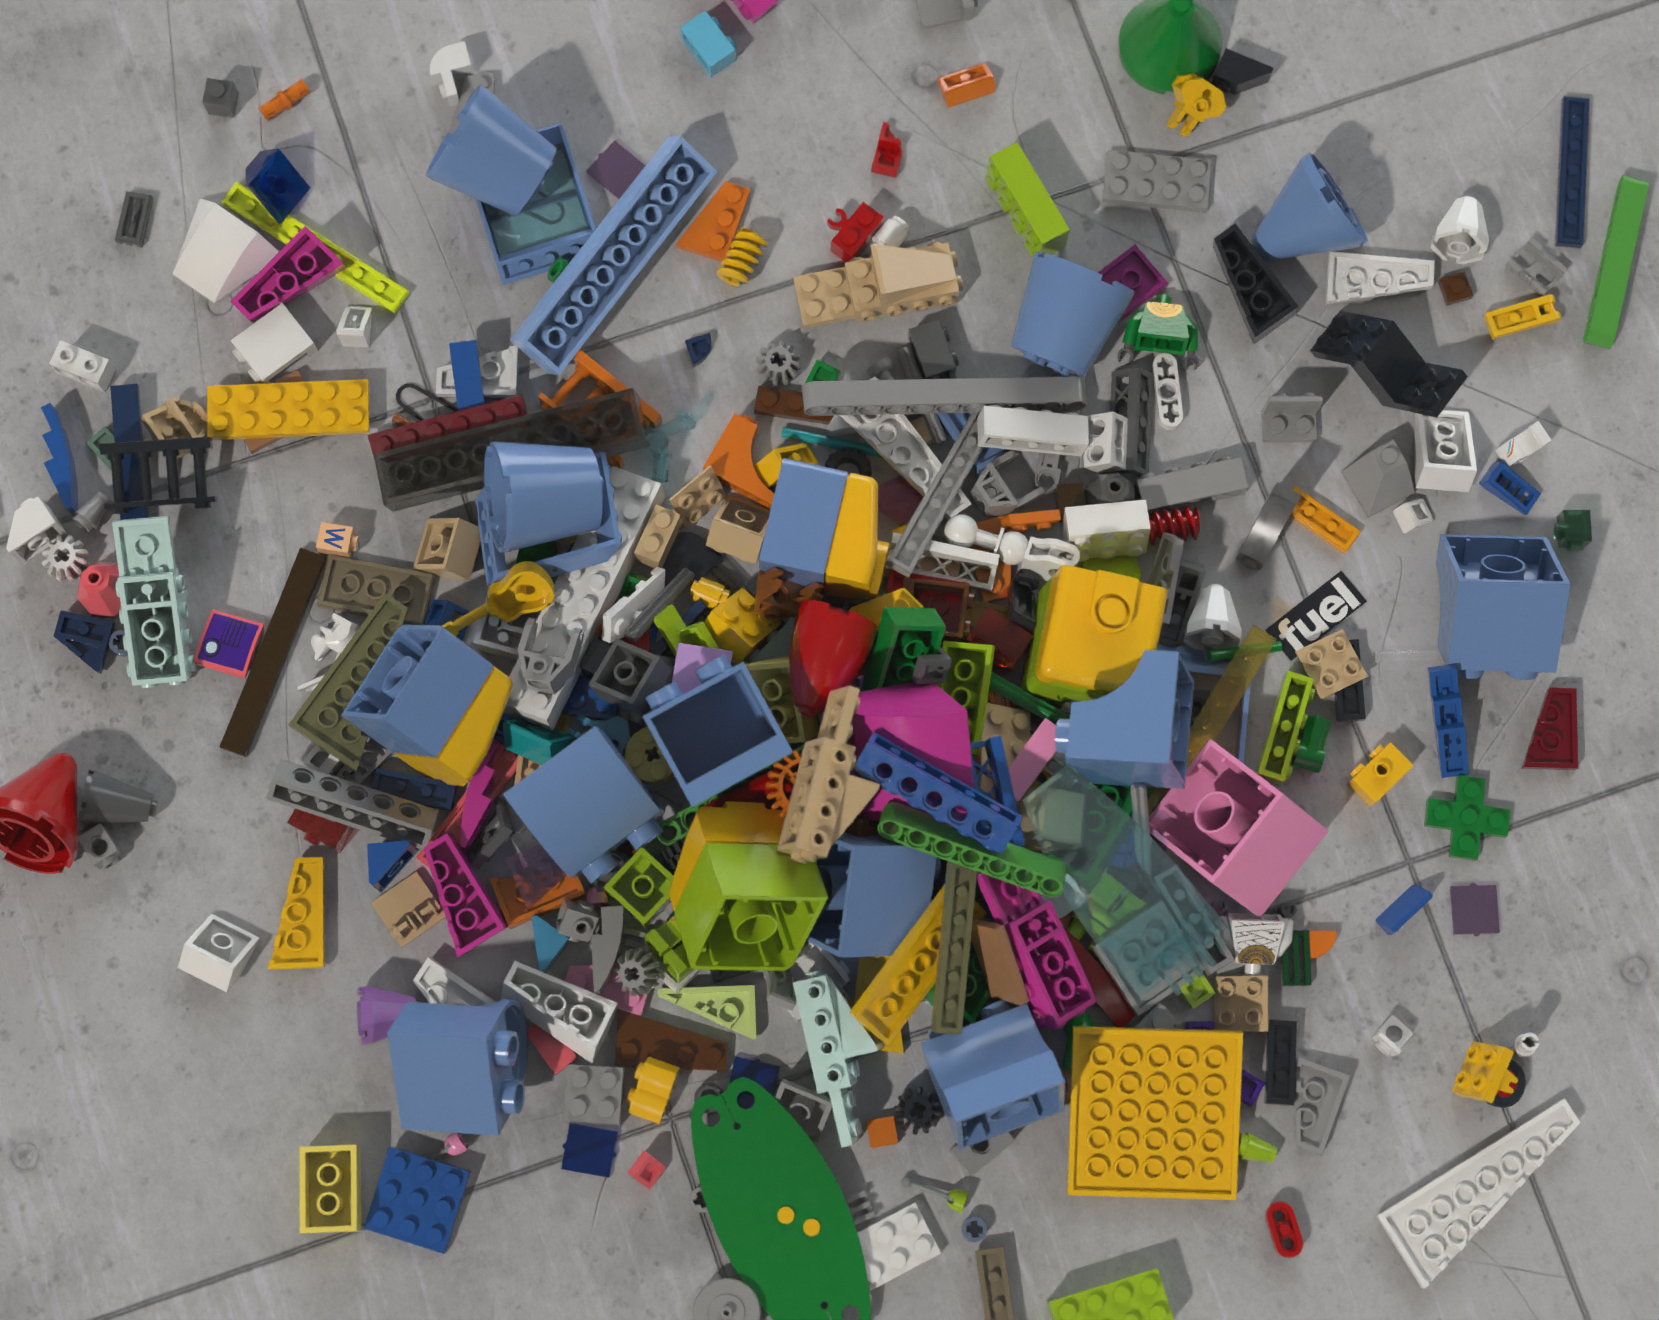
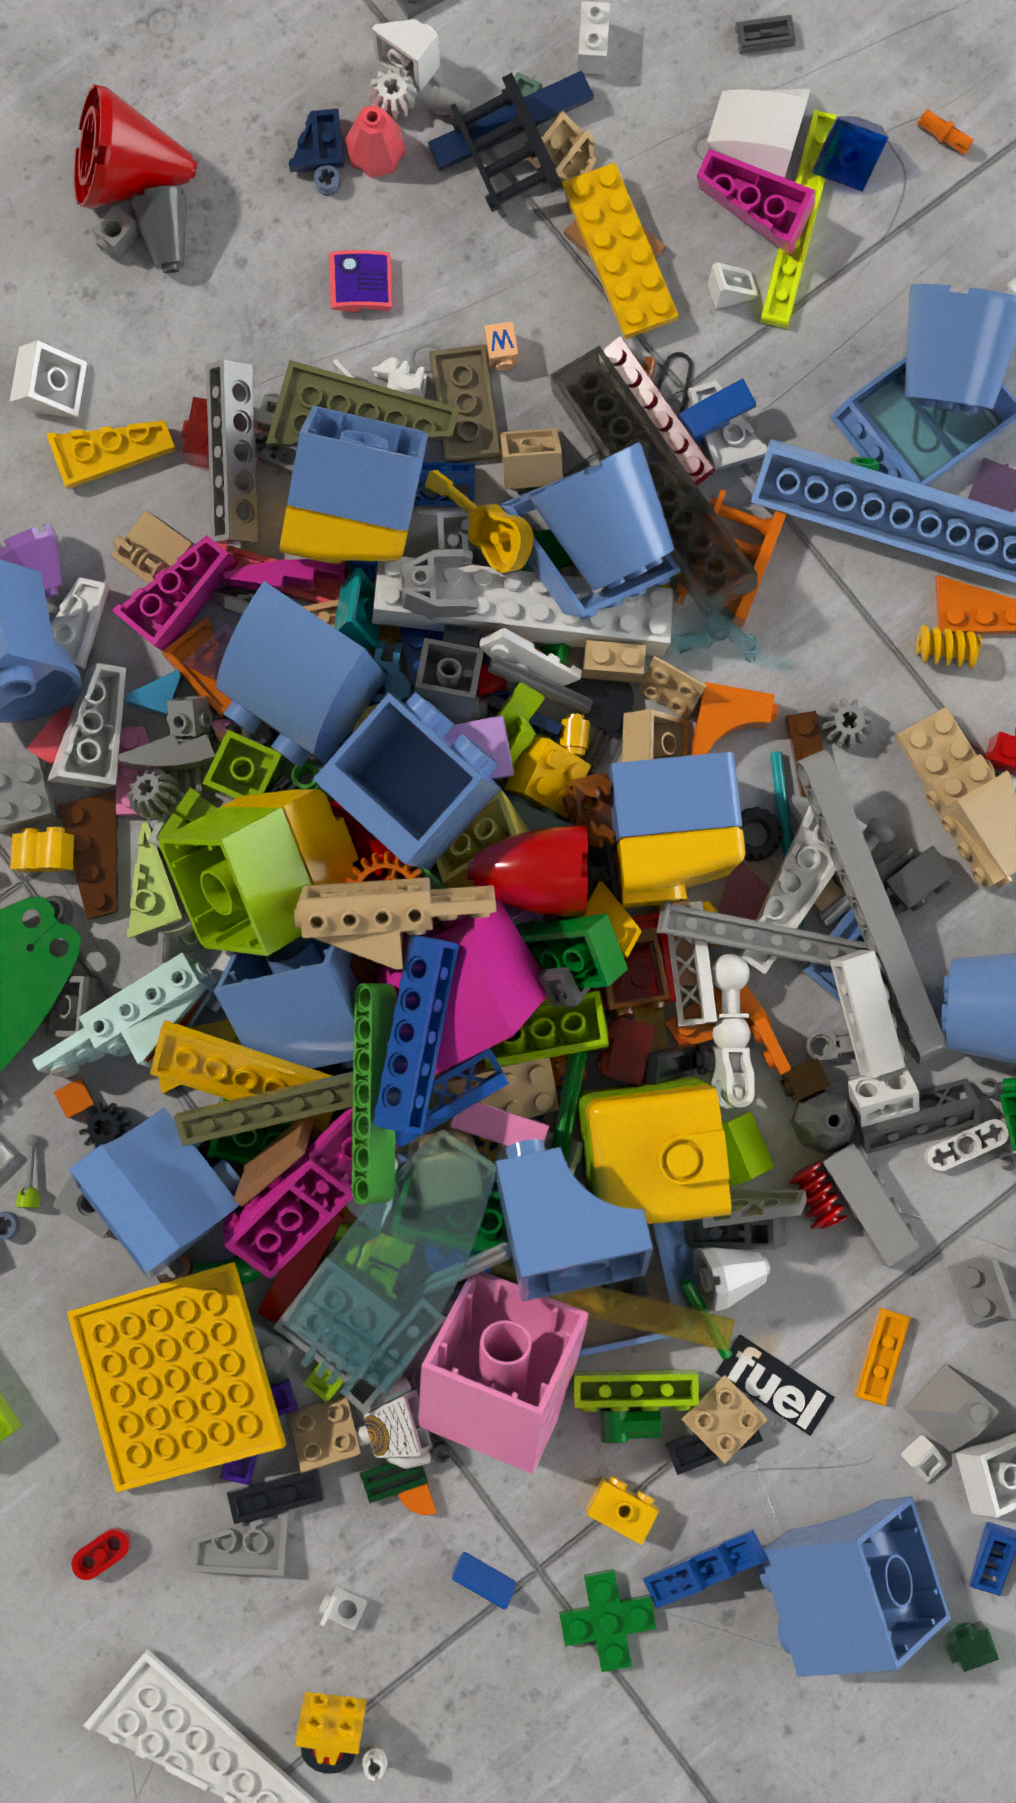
camera: 70 degrees right, 5 degrees up
(62, 465) = (485, 57): blue slope -> none
(152, 603) = (369, 186): light aqua wedge -> none
(220, 97) = (923, 67): dark grey brick -> none
(272, 344) = (682, 210): white panel -> none
(273, 652) = (367, 327): dark brown tile -> none
(387, 861) = (183, 507): blue slope -> none
(415, 788) = (271, 508): dark blue plate -> none
(699, 348) = (834, 637): dark blue tile -> none
(757, 1071) = (94, 950): clear blue piece -> none
(769, 466) = (751, 775): yellow slope -> none
(823, 372) = (850, 773): green plate -> none
(993, 495) = (793, 989): light grey piece -> none
(1107, 529) = (786, 1128): white brick -> none
(1255, 1149) = (176, 1496): lime cone -> none
(1267, 527) = (851, 1302): flat silver arch -> none
(1474, 909) = (510, 1658): clear purple piece -> none
(1555, 733) = (734, 1692): dark red wing -> none

